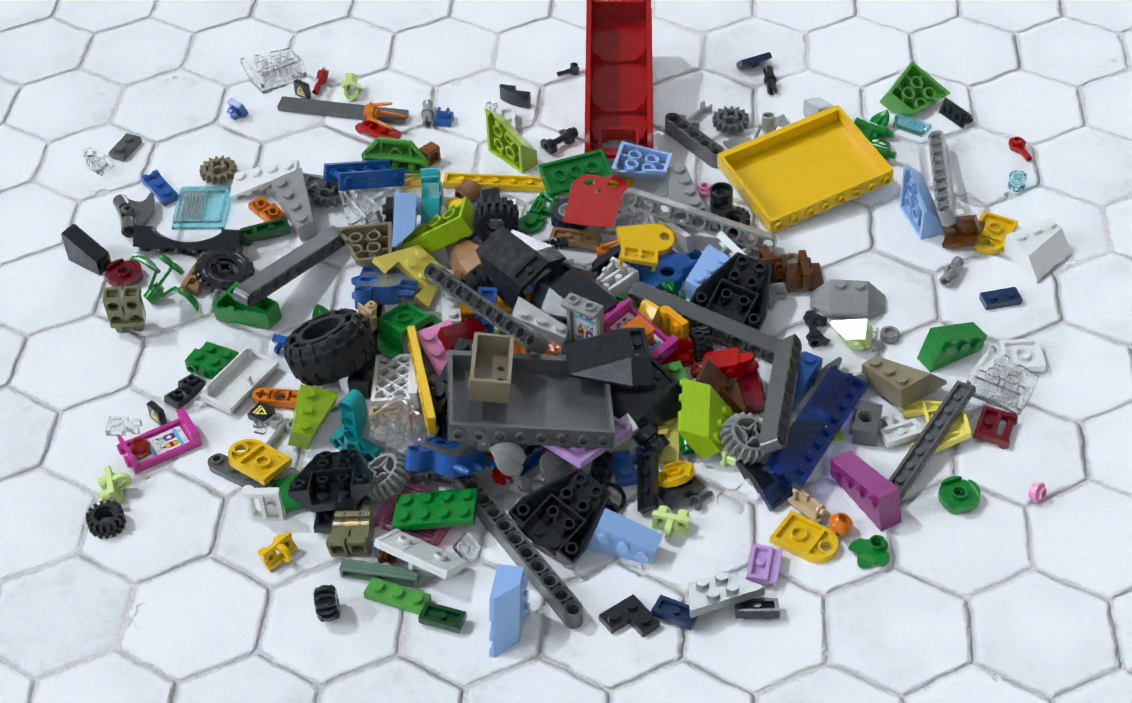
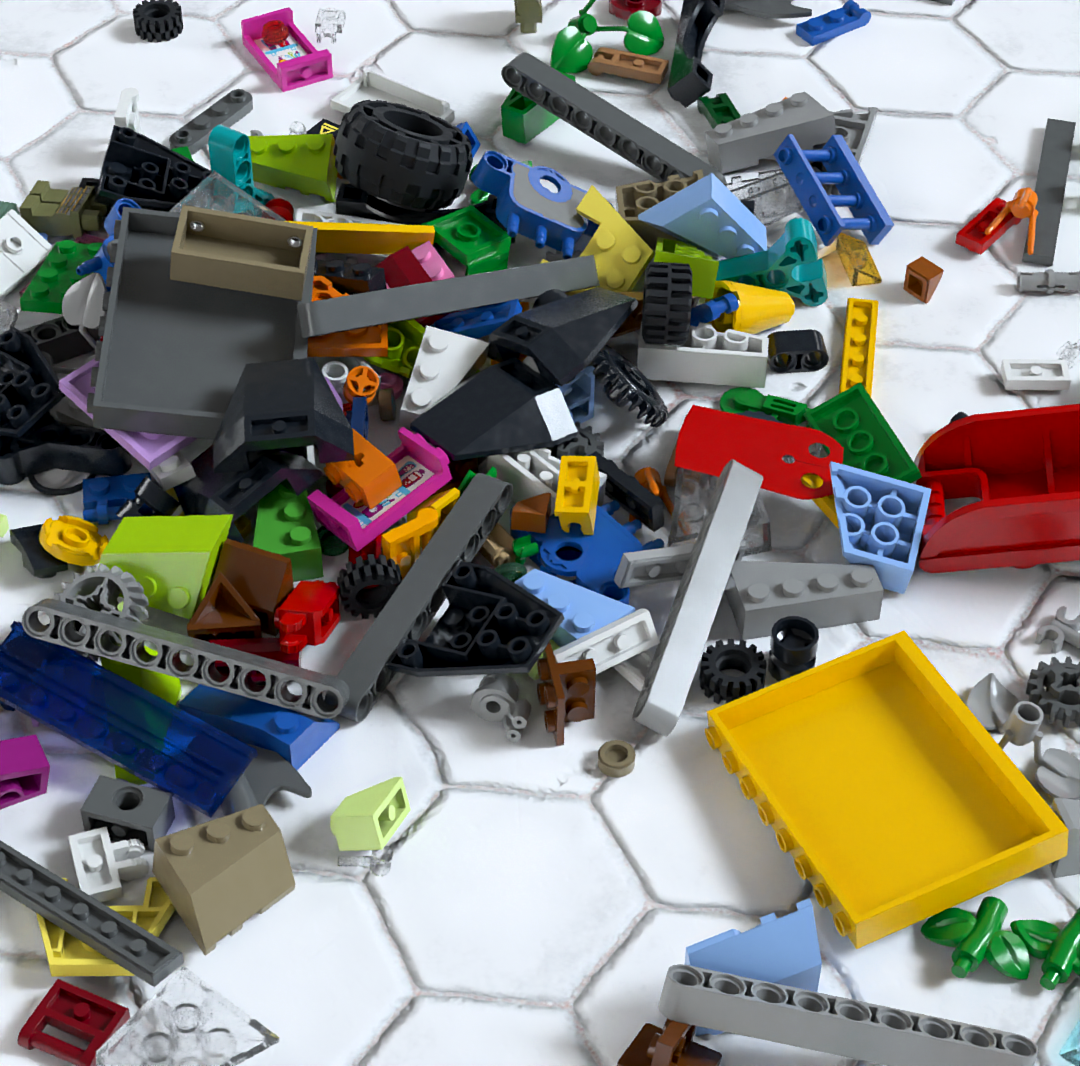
camera: 90 degrees right, 0 degrees up
(113, 484) = (223, 15): yellowish green hips -> none
(156, 413) = (339, 42): black tile -> none
(186, 391) = (392, 67): black slope -> none
(202, 208) = (790, 64): clear light blue piece -> none
(209, 360) = (440, 79): green plate -> none
(218, 170) = (870, 67): dark tan gear -> none
(223, 262) = (624, 64): black gear -> none
(236, 108) = (1032, 77): tile -> none
(249, 180) = (844, 101): white wing -> none
(258, 460) = (220, 110): yellow tile -> none
(281, 543) = (49, 145): yellow hips -> none
(368, 312) = (456, 185): tan hinge -> none
(400, 153) = (909, 240): bright green wedge -> none
(443, 118) = (1039, 300): blue tile -> none
(468, 188) = (820, 317): medium nougat head -> none
(508, 143) = (944, 358): lime wedge -> none
(583, 317) = (402, 394): light grey panel -> none
(646, 236) = (641, 509): yellow tile -> none
(647, 276) = (532, 514): none -> dark orange slope
(647, 482) = (59, 504): black plate -> none
(692, 139) = (994, 626): dark grey beam -> none
(699, 500) = (18, 575): dark grey hand -> none
(704, 189) = (838, 639): bright pink plate -> none
(803, 275) = (561, 767): reddish brown bracket -> none
(815, 337) = (429, 764): black piece -> none
(848, 298) = (472, 834): light grey wedge -> none
(889, 334) = (379, 891): light grey tile -> none
(950, 344) = (312, 979): green wedge -> none
(951, 271) = (555, 1025): light grey pin -> none

